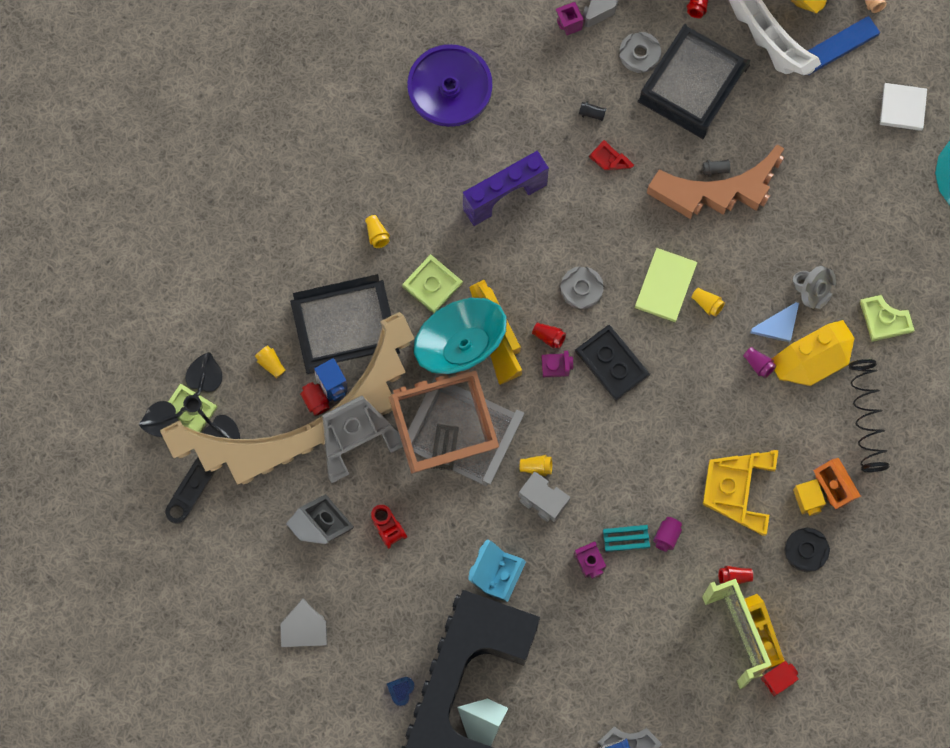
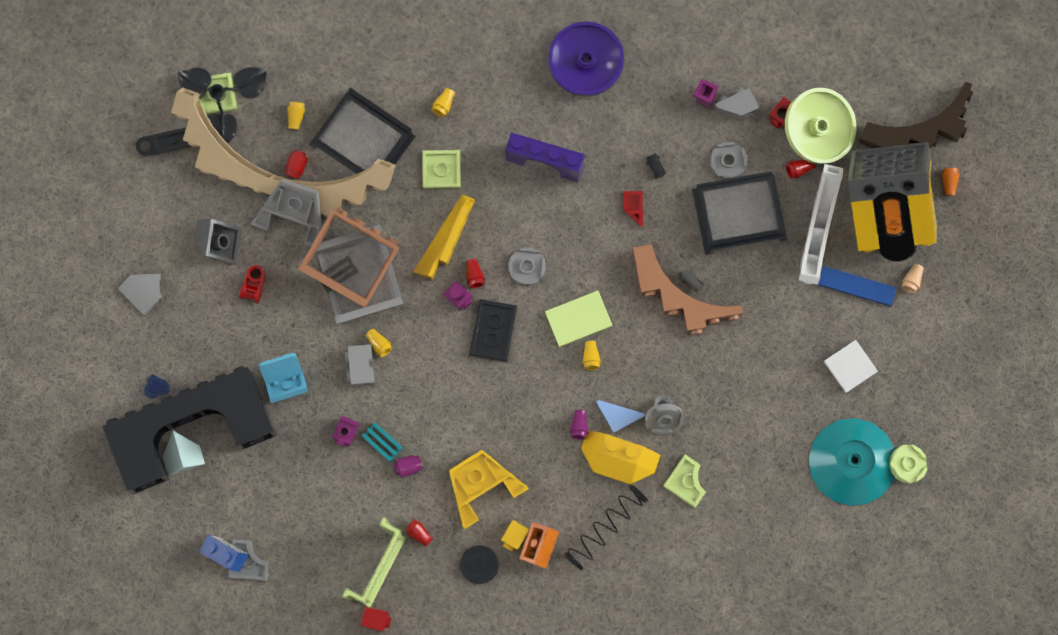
camera: 50 degrees right, 5 degrees up
(331, 380) = (314, 164): blue brick -> none
(460, 335) = (416, 217): teal dish -> none
(765, 629) = (396, 580): yellow slope -> none

